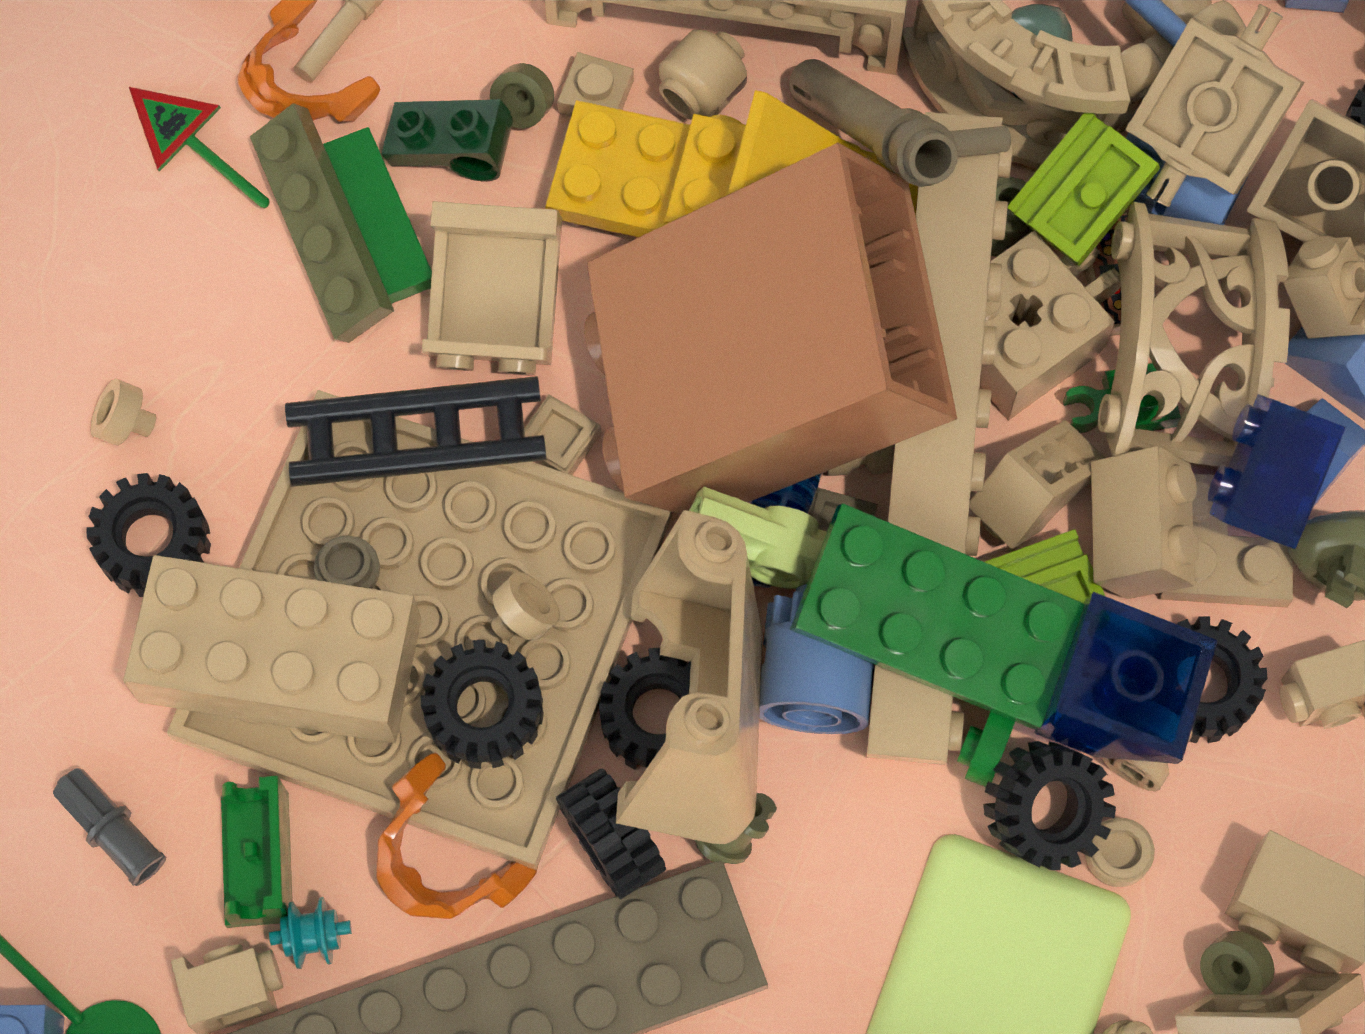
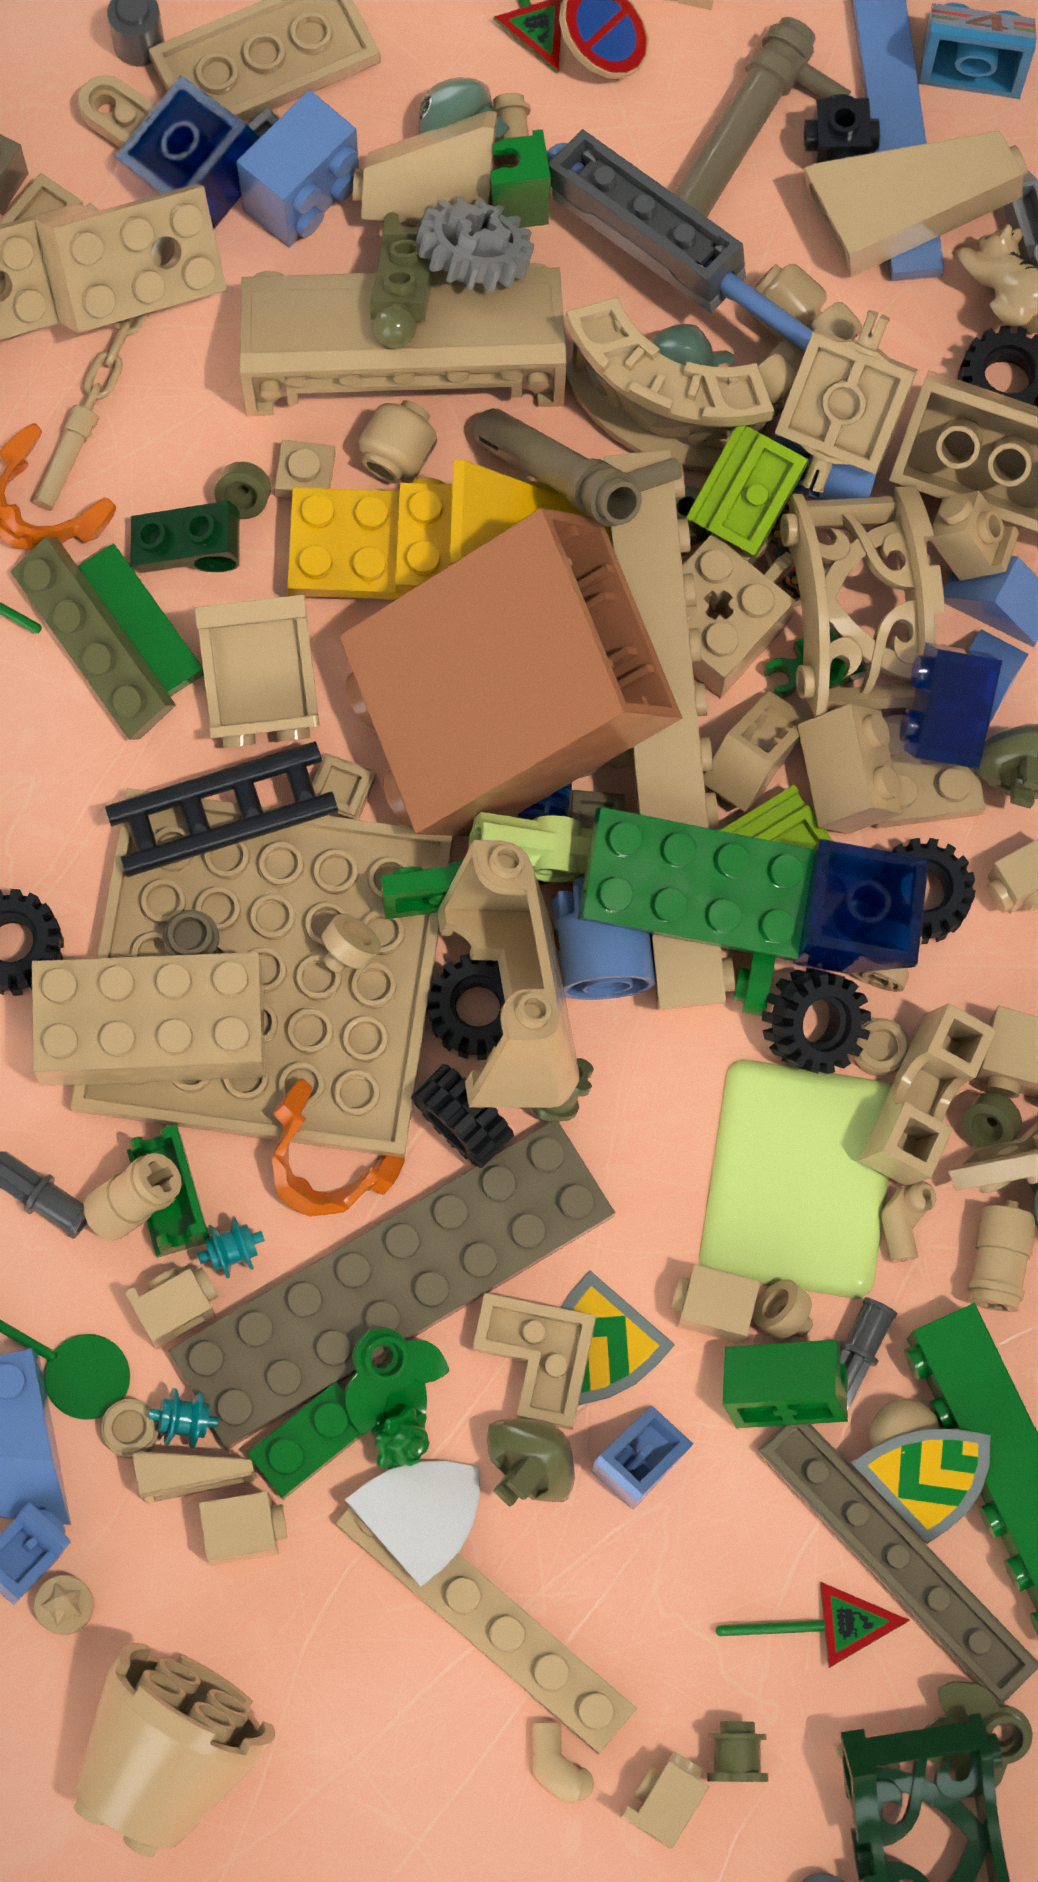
camera: 15 degrees left, 5 degrees up
(208, 849) = (132, 1196): none -> tan piece
(476, 666) = (333, 997): black tyre -> none
(611, 563) = (415, 890): none -> green plate
(1138, 953) = (938, 1063): none -> tan arch

